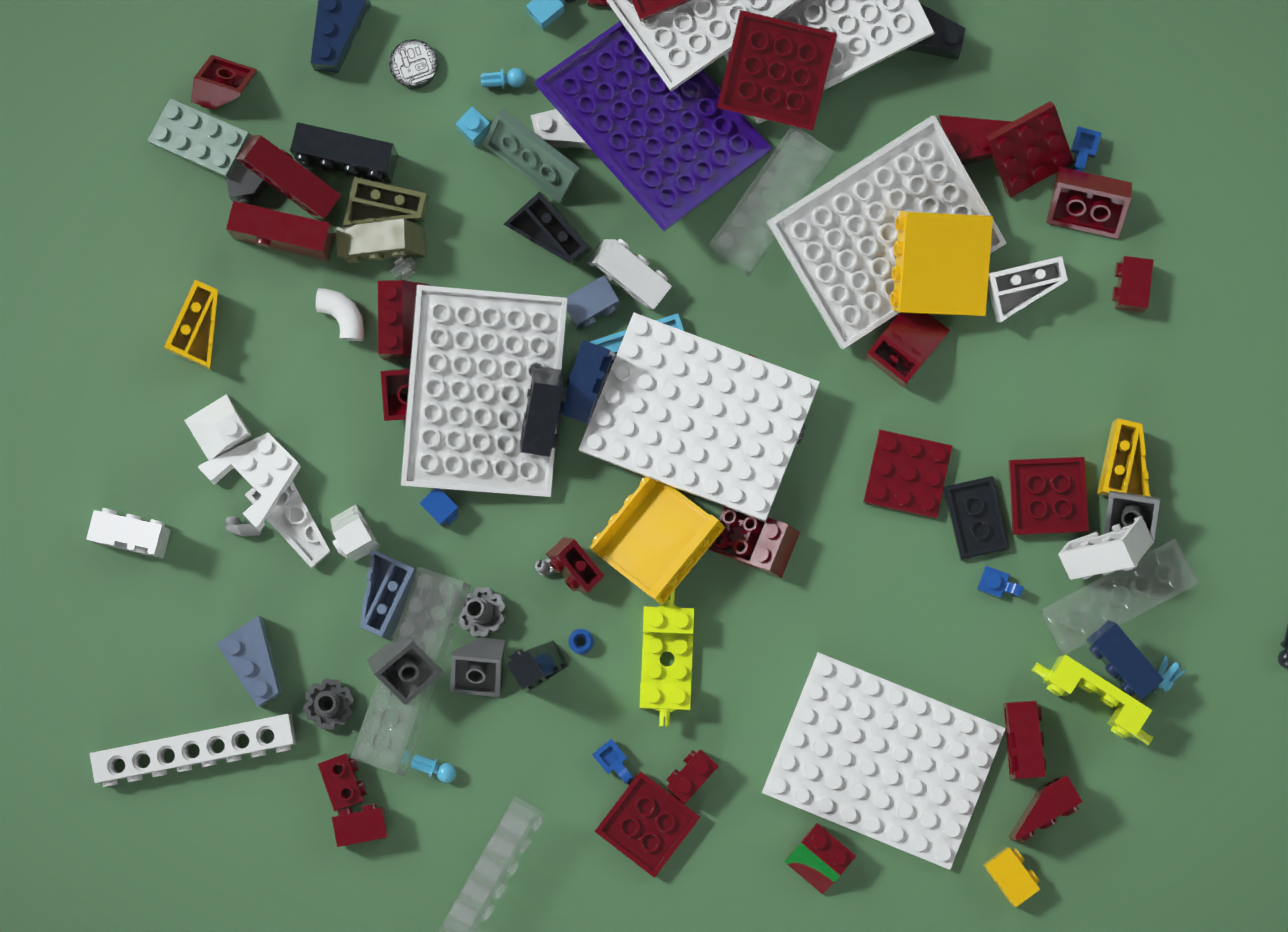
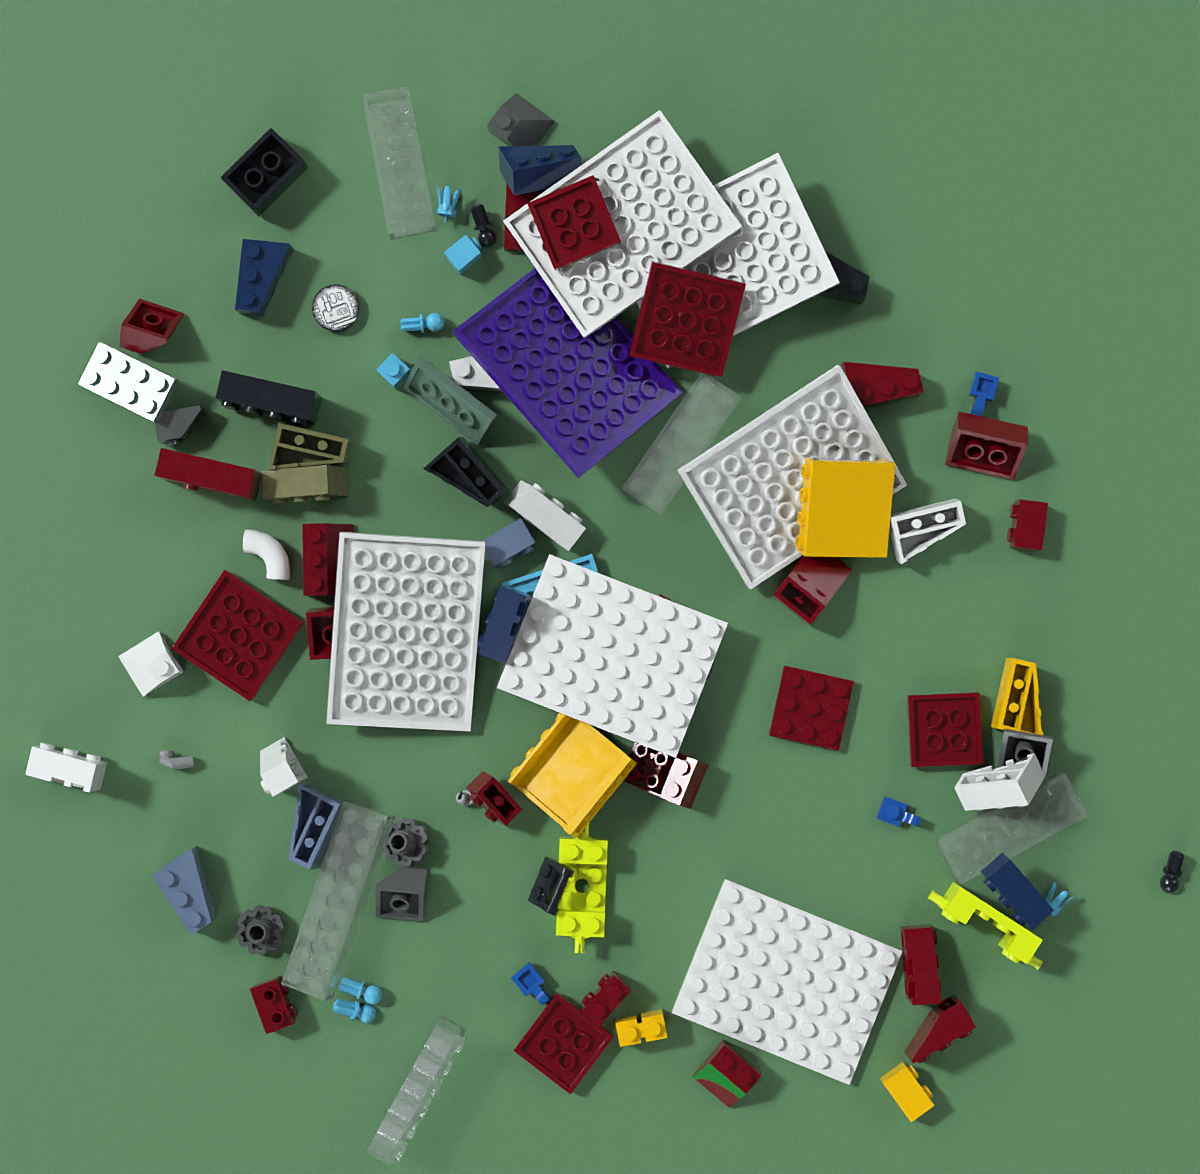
camera: 10 degrees left, 5 degrees up
(104, 761) = (46, 985): white brick -> none
(195, 326) = (127, 566): yellow wedge -> none
(263, 466) = (195, 703): white wing -> none
(288, 176) = (214, 423): dark red brick -> none
(295, 525) = (217, 745): white wing -> none
(309, 398) = (237, 635): none -> dark red plate
(360, 826) = (291, 1047): dark red brick -> none
(404, 269) = (328, 511): clear plate -> none
(404, 669) = (330, 903): dark grey slope -> none
(438, 793) = (366, 1013): none -> medium azure axle
(440, 507) = (365, 742): blue brick -> none
(536, 665) = (456, 897): black wedge -> none
(542, 411) = (462, 652): black wedge -> none
(581, 649) = (500, 876): blue plate -> none
(633, 656) = (550, 885): none -> black plate
(740, 806) = (631, 1031): none -> yellow piece
(976, 518) = (876, 750): black tile -> none
(1030, 149) = (930, 395): dark red plate -> none

